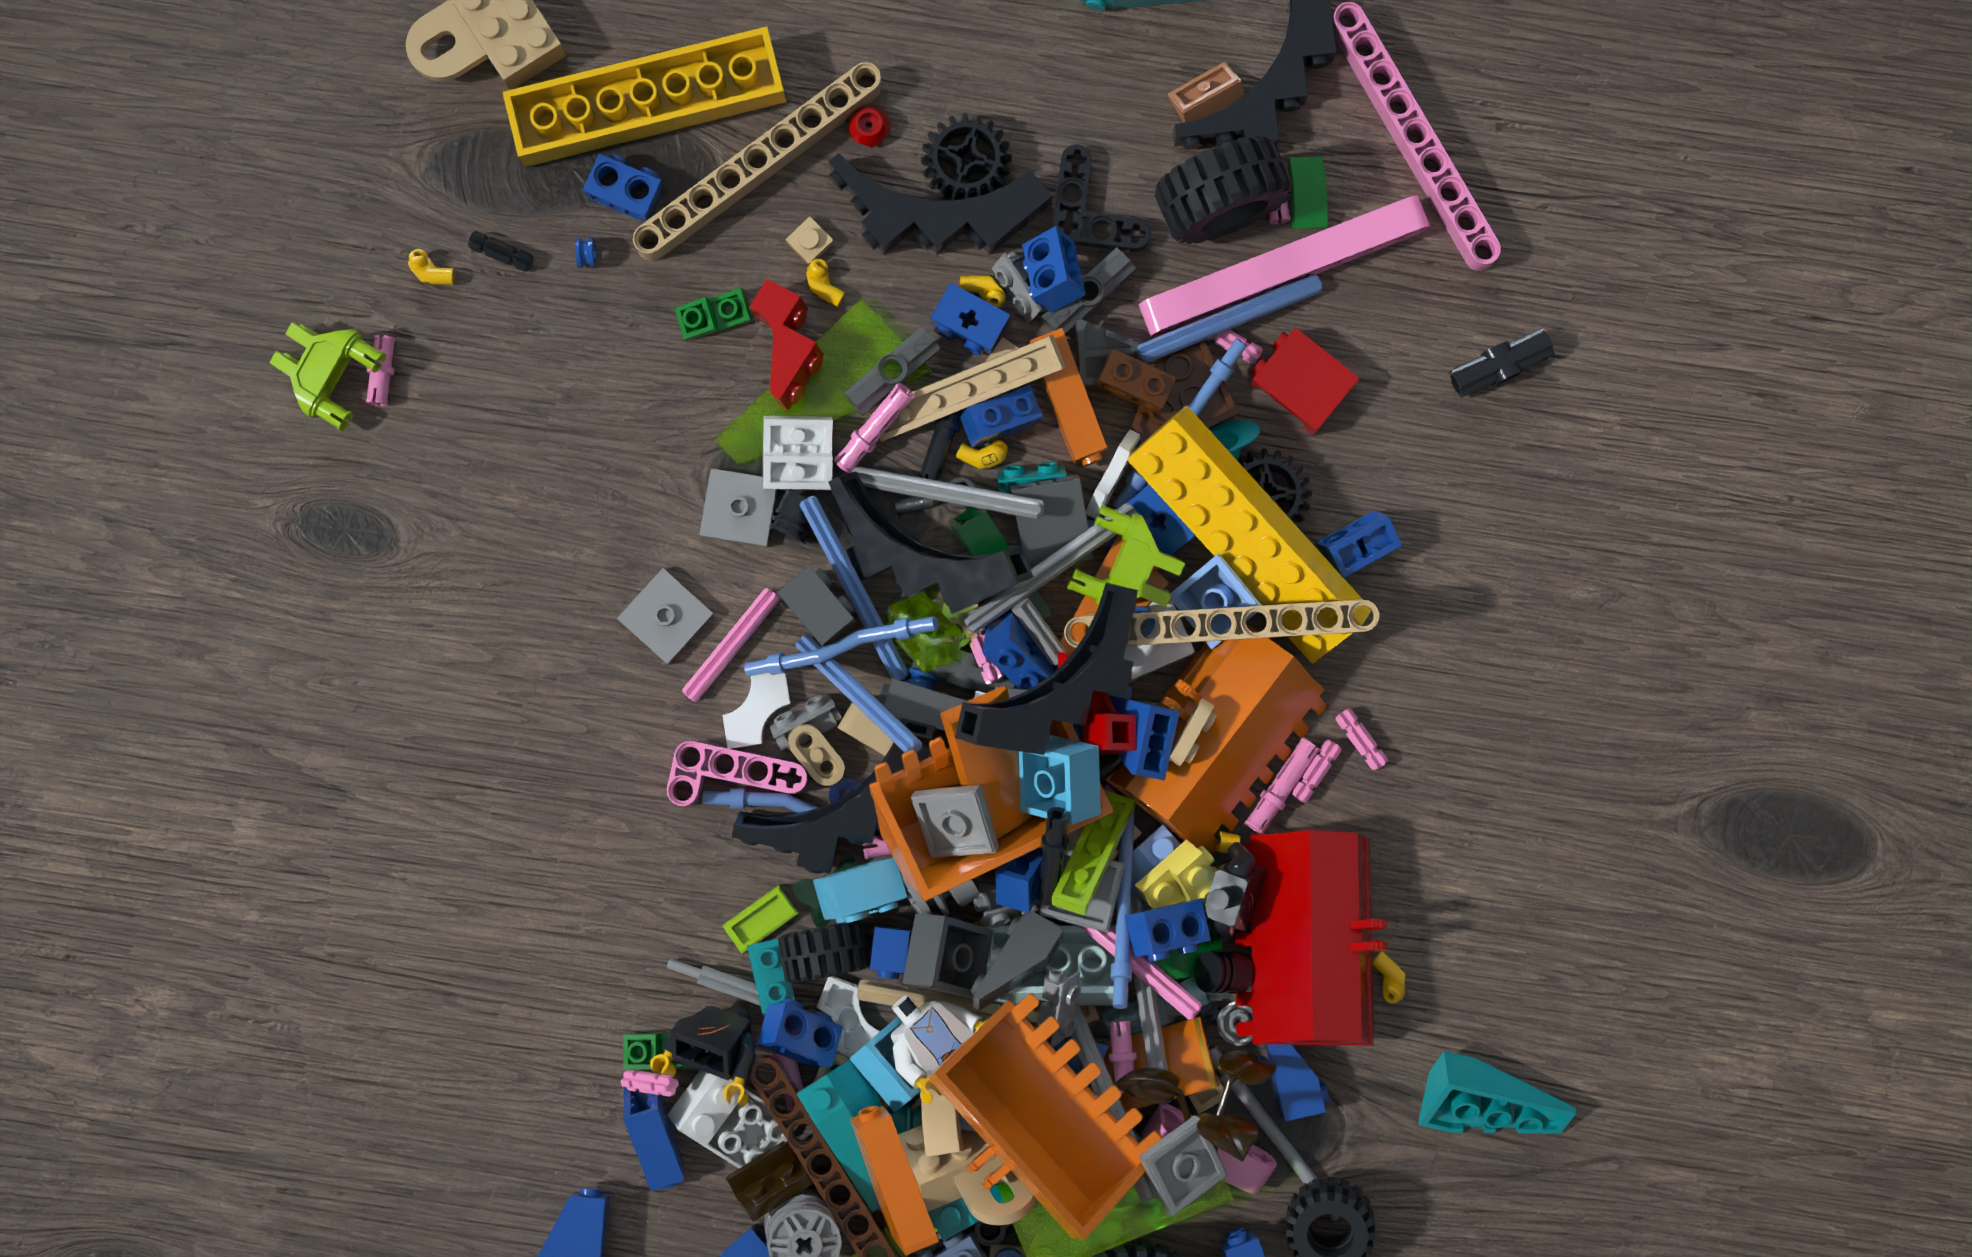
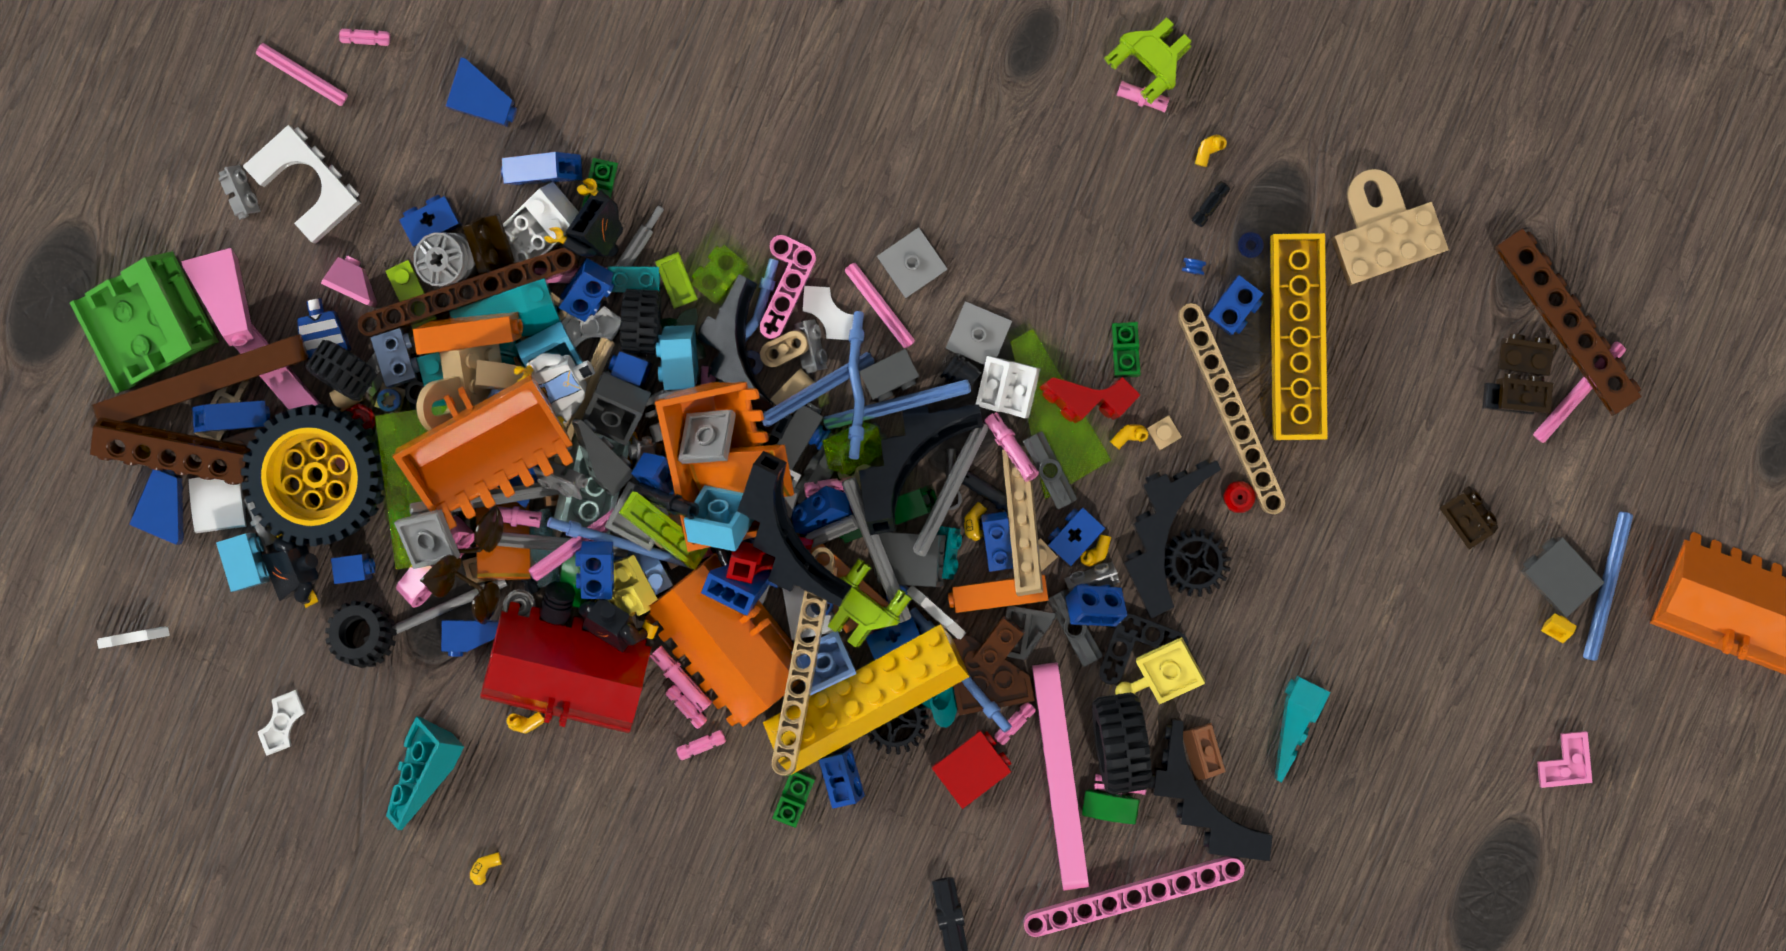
camera: 105 degrees right, 5 degrees up
(536, 180) = (1258, 245): none -> clear blue plate
(649, 1083) = (578, 174): bright pink axle -> none
(741, 857) = (723, 277): none -> clear neon green brick
(1115, 161) = (1167, 671): none -> light yellow plate
(1185, 746) = (738, 630): tan plate -> none
(1229, 318) = (1030, 725): medium blue axle -> none
(1402, 601) = (794, 798): none -> green slope
(1592, 989) = (481, 867): none -> yellow arm

